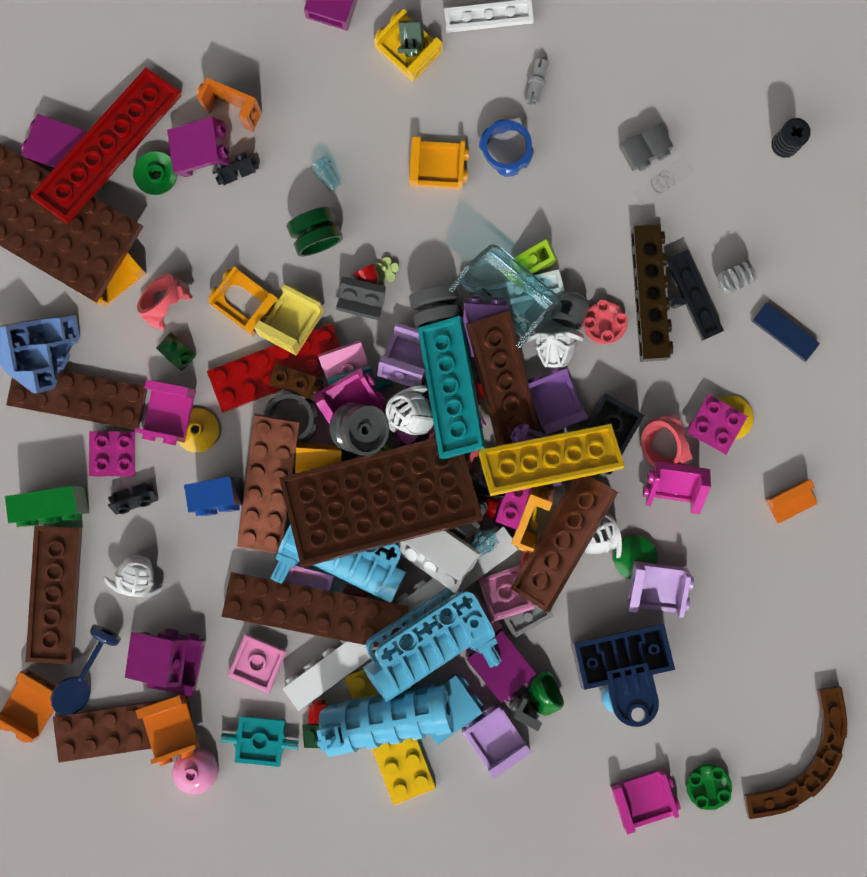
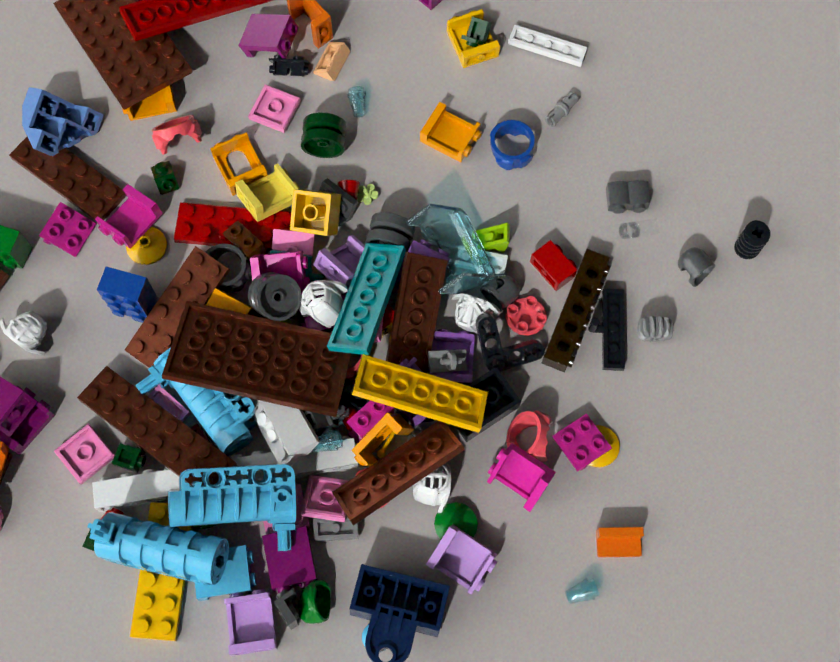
camera: 20 degrees right, 15 degrees down
(122, 502) = (57, 272): black hinge -> none
(145, 169) = (224, 35): green dish -> none
(246, 223) = (274, 108): none -> bright pink plate
(259, 741) = (48, 521): teal plate -> none
(275, 139) = (332, 60): none -> light nougat slope
(301, 646) = (129, 458): none -> dark green bracket
(351, 319) = (315, 212): none -> yellow brick
(554, 408) = (447, 360): none -> light grey hips
(597, 373) = (497, 350): none -> black beam
(608, 257) = (553, 265): none -> red brick
(745, 189) = (696, 262): none -> dark grey helmet
(780, 563) = (583, 591): none -> clear light blue cone
(785, 332) = (678, 396): dark blue tile -> none

